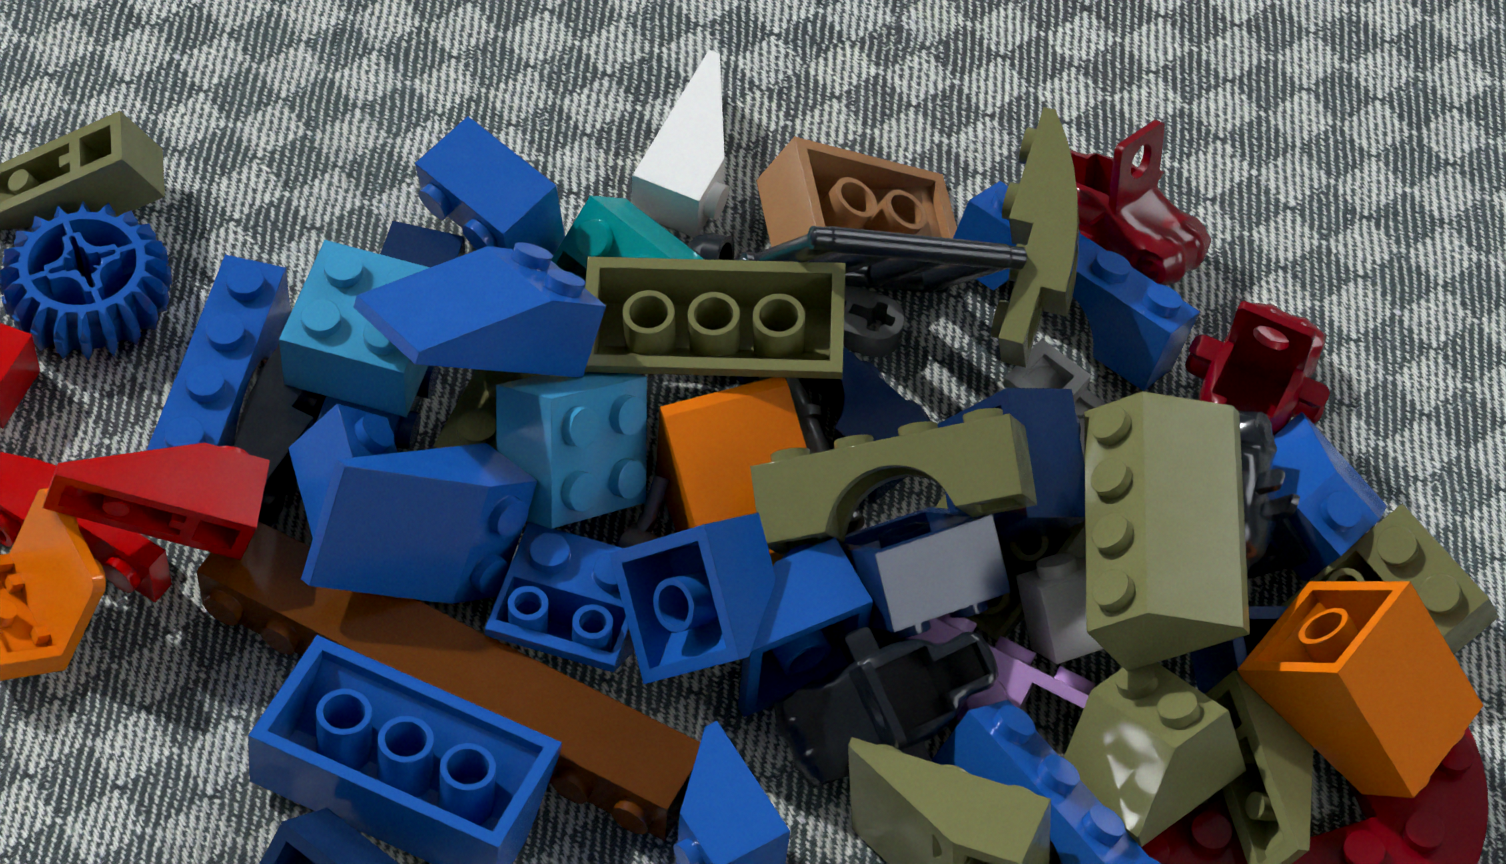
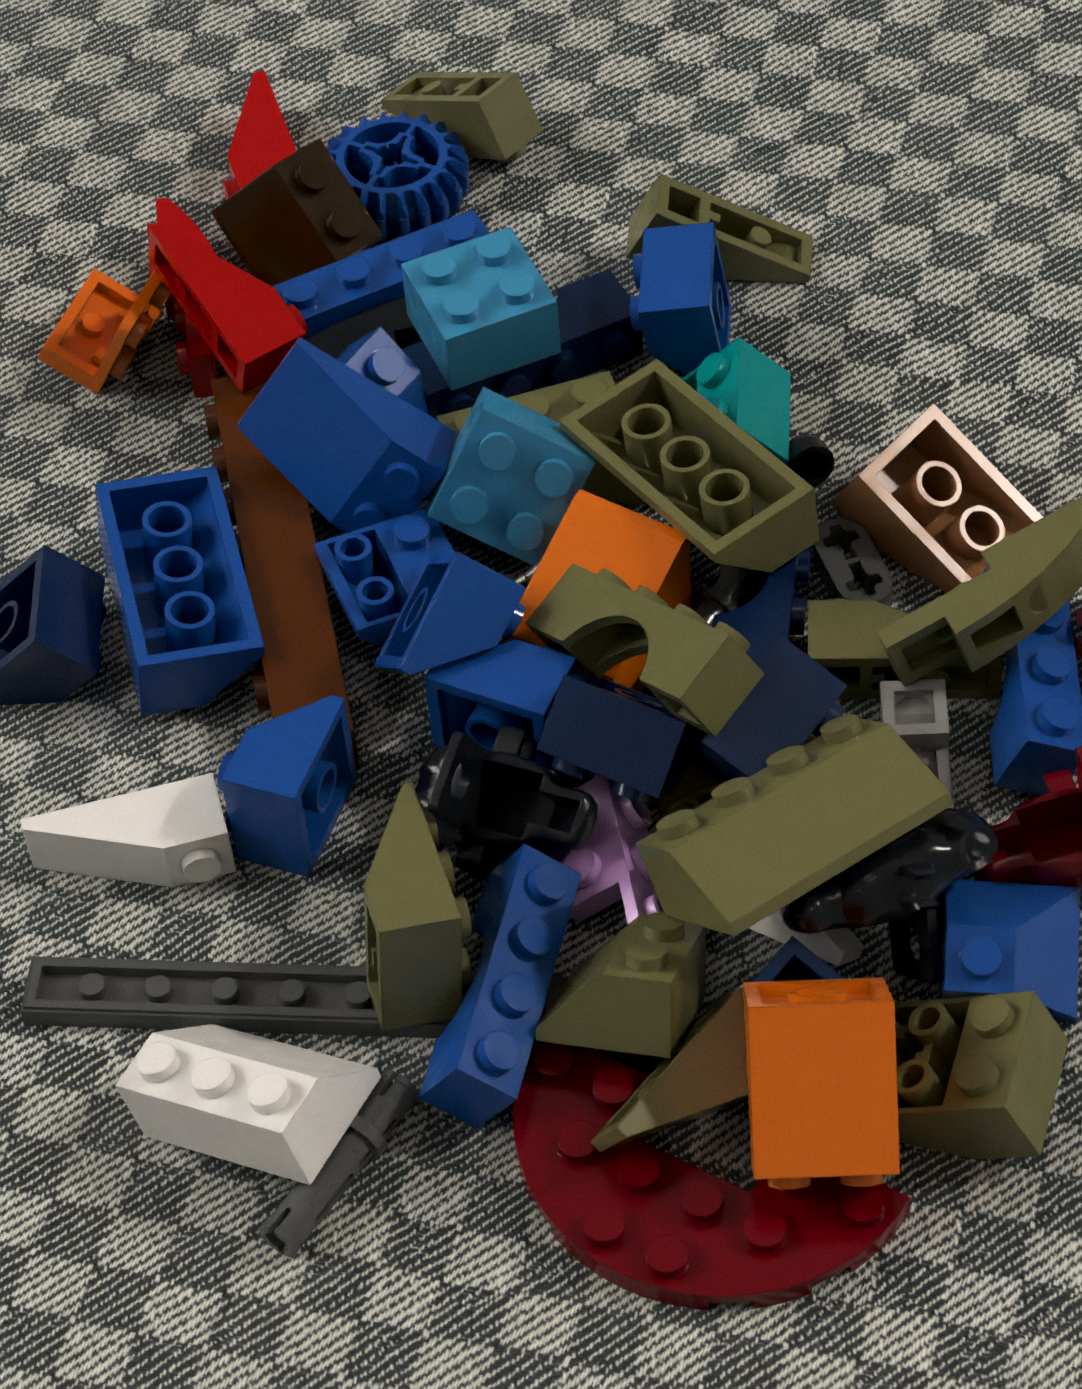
camera: 60 degrees right, 5 degrees down
(82, 377) = (296, 217): none -> dark brown slope
(393, 135) = (748, 242): none -> olive slope
(490, 313) = (520, 333): blue slope -> none
(684, 166) = (882, 382): white slope -> none
(896, 259) = (865, 516): black bar -> none
(947, 360) = (847, 645): none -> olive slope

